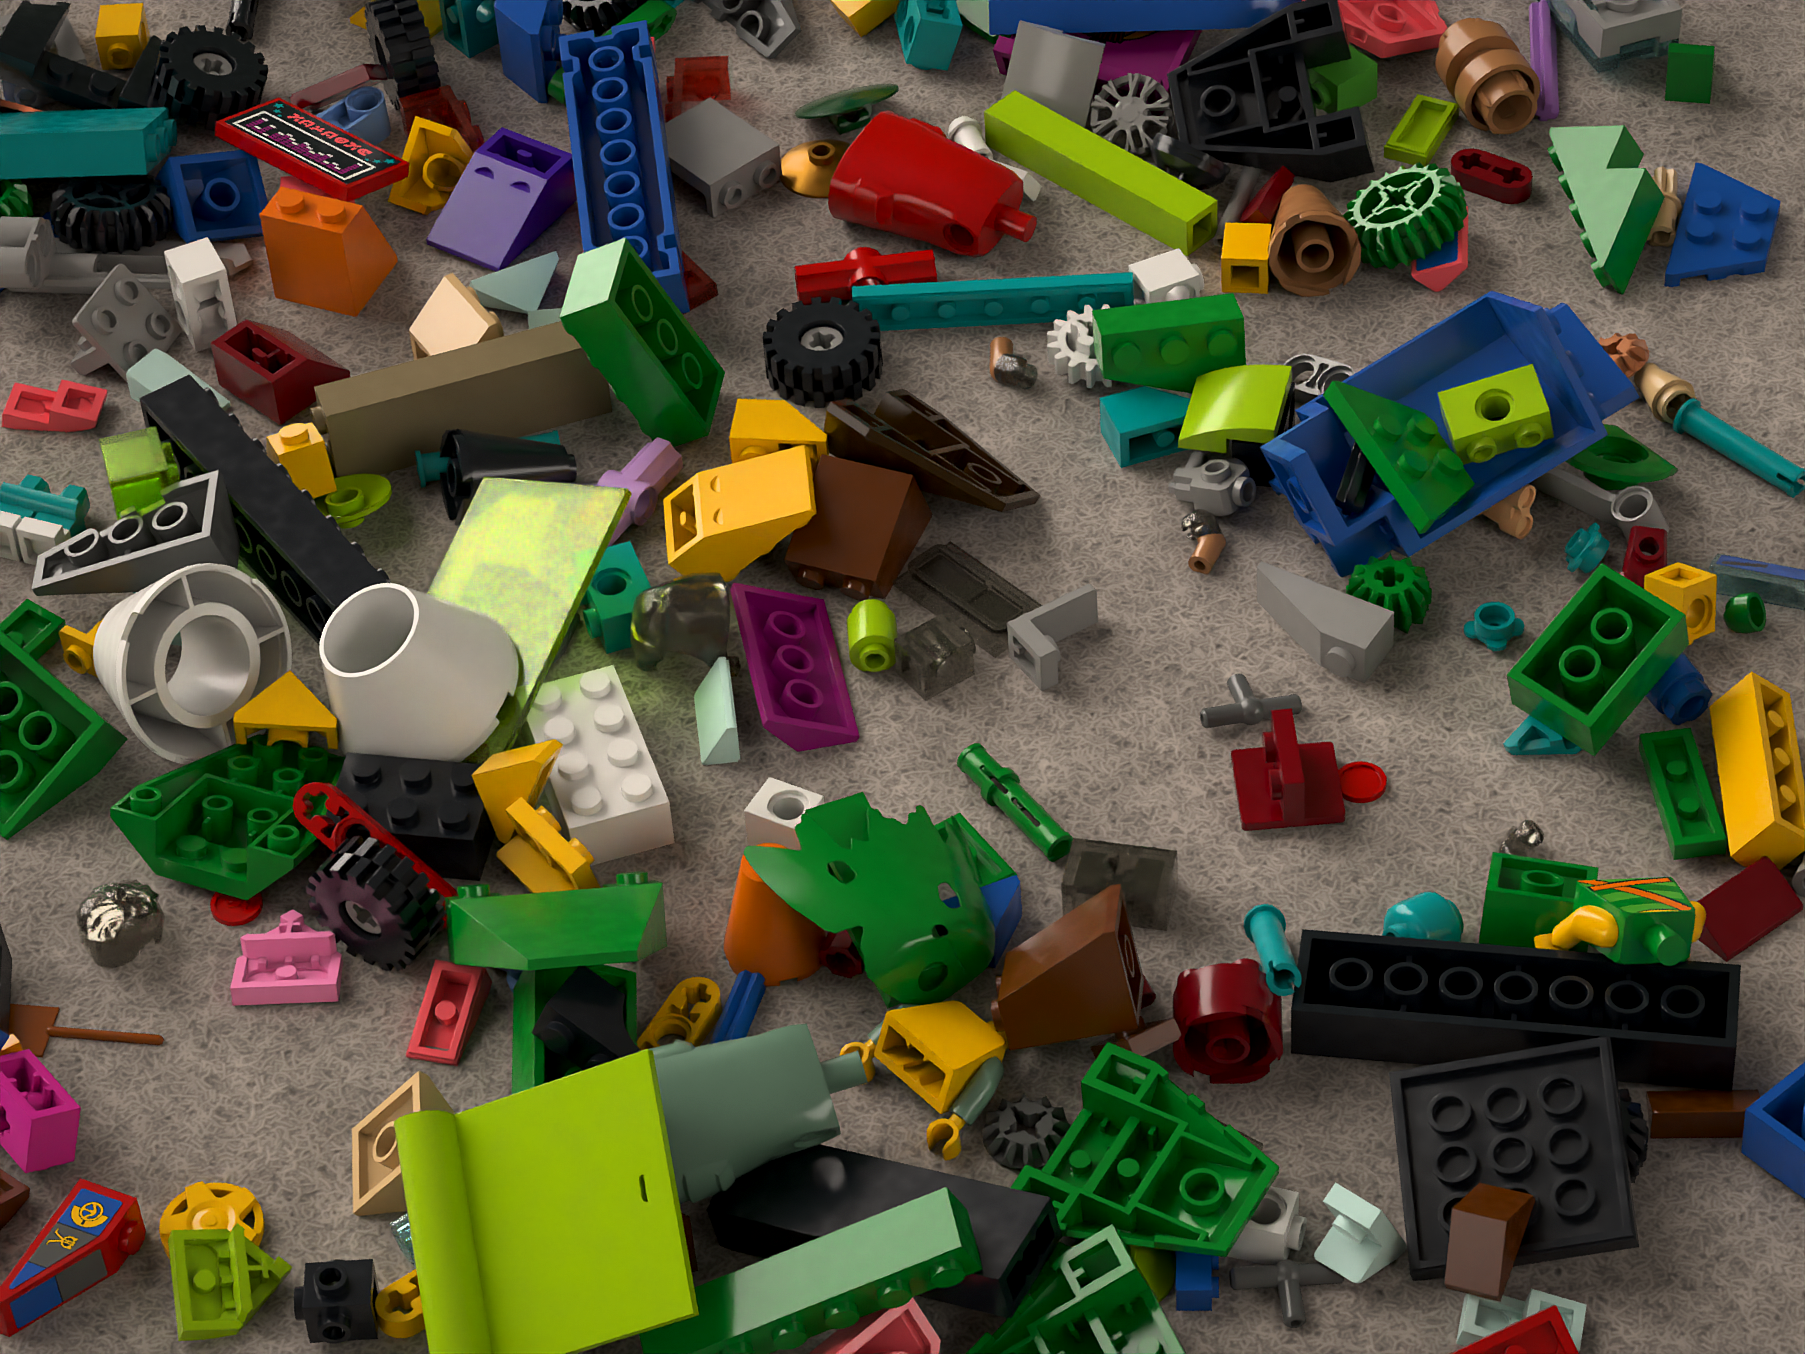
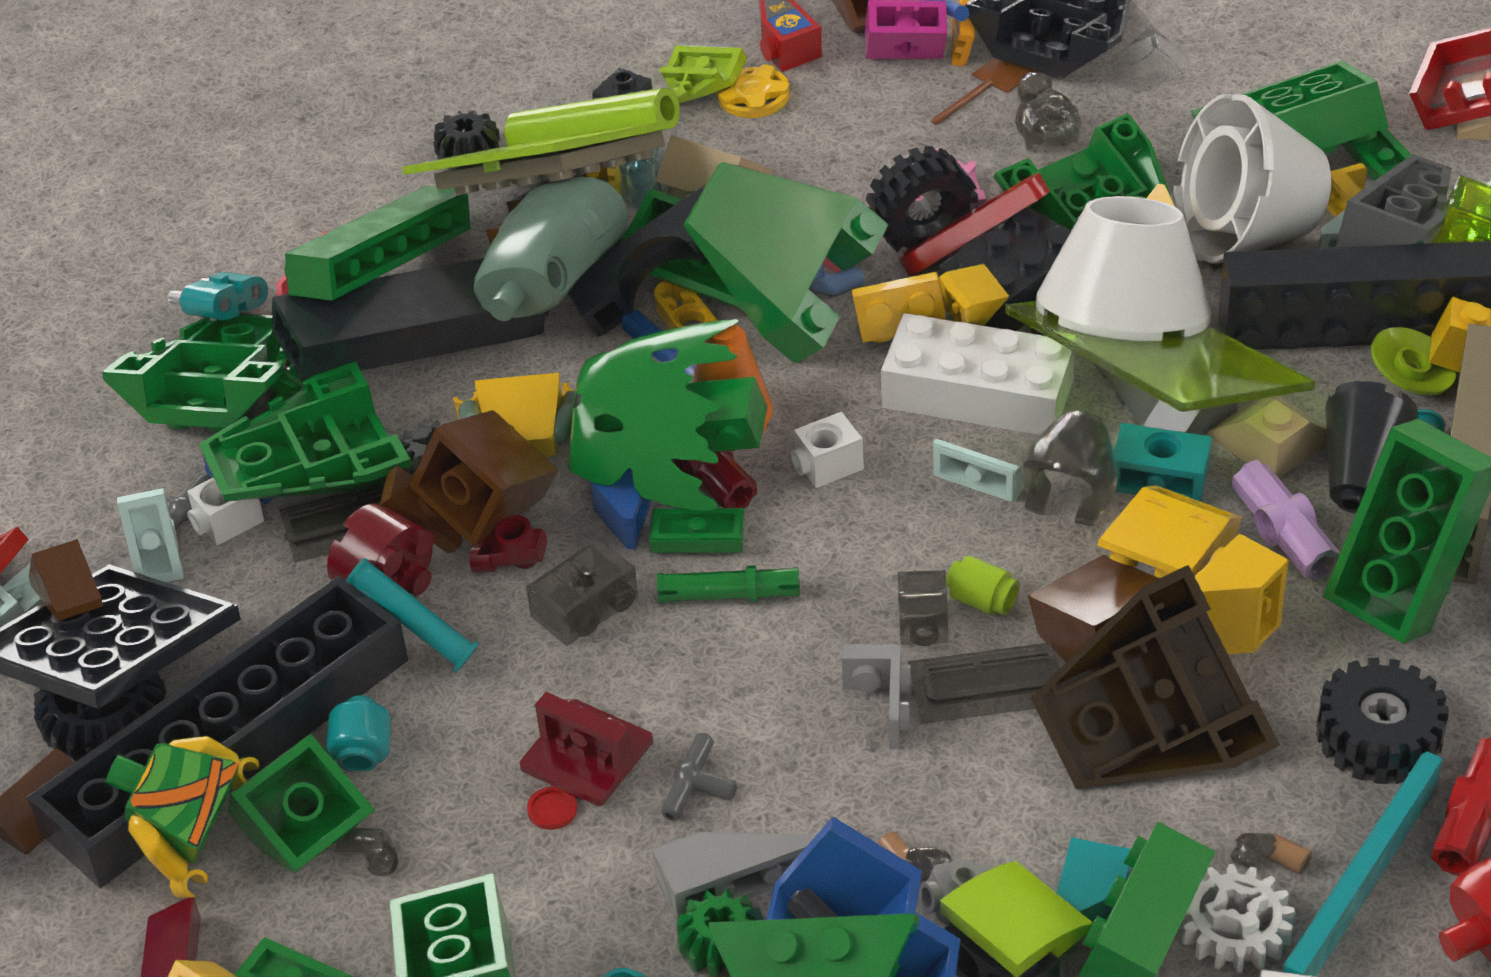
camera: 125 degrees right, 0 degrees up
(794, 667) = (995, 521): magenta slope -> none

